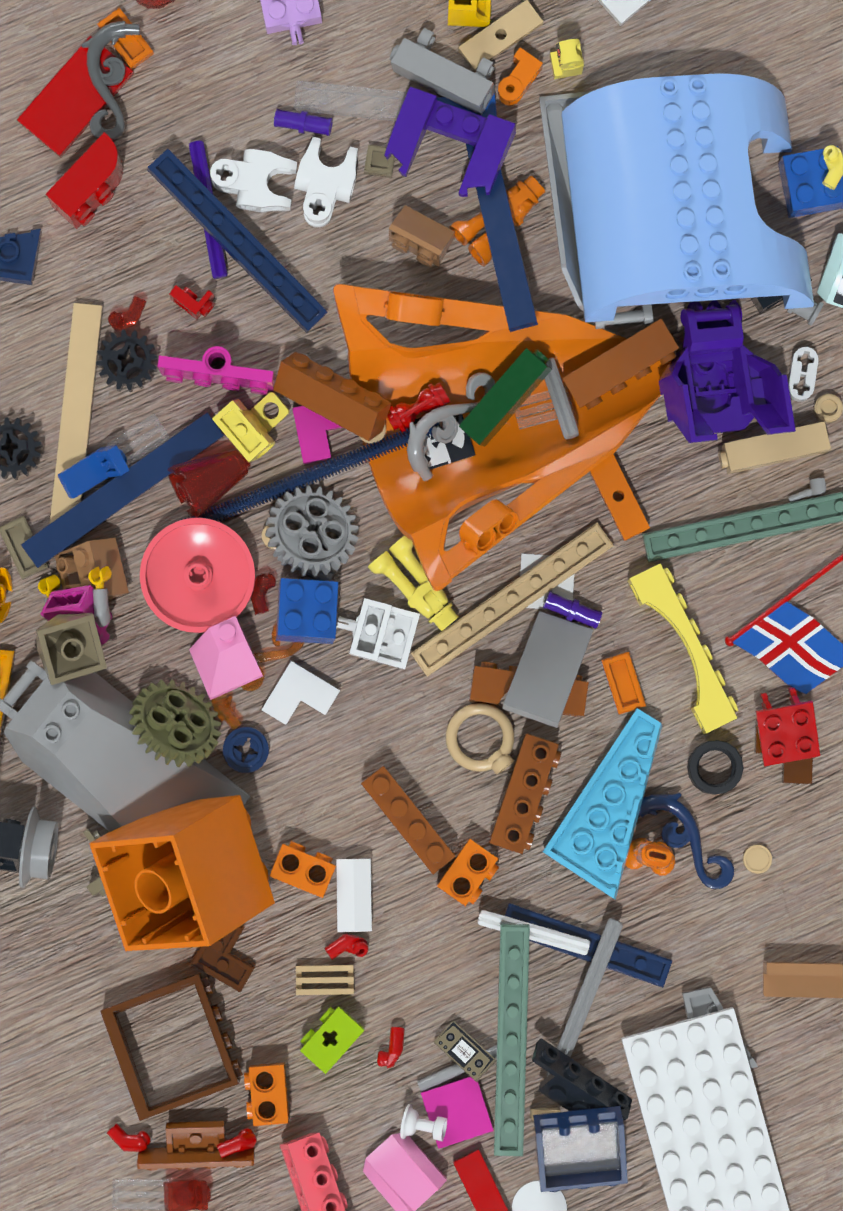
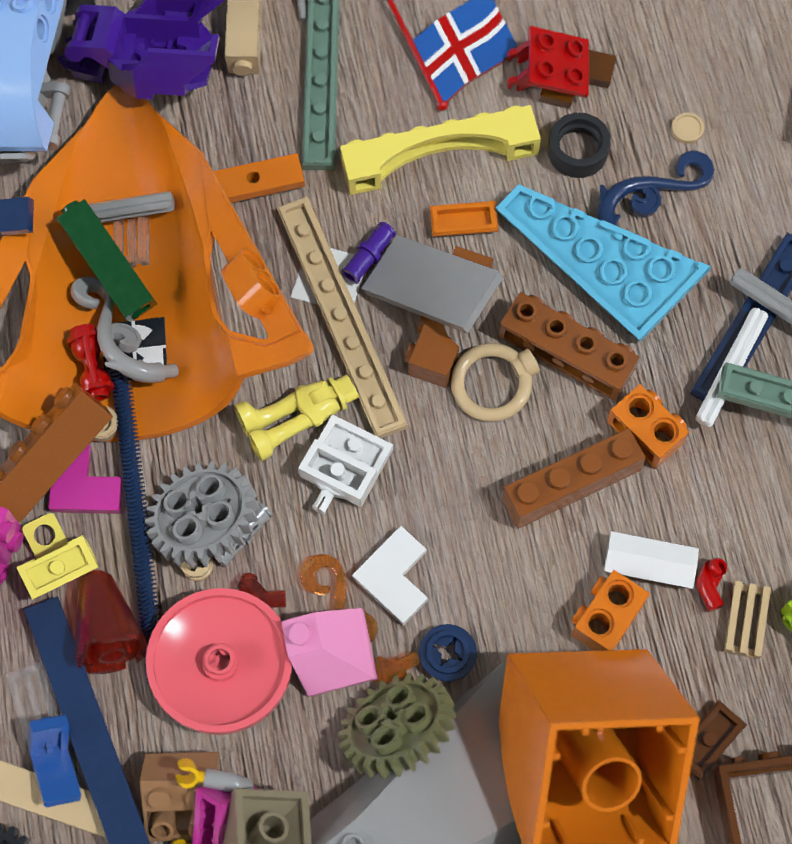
camera: 70 degrees left, 15 degrees down
(307, 611) = (296, 539): blue brick -> none
(621, 363) = (106, 134): dark orange brick -> none
(650, 854) = (668, 215): orange piece -> none

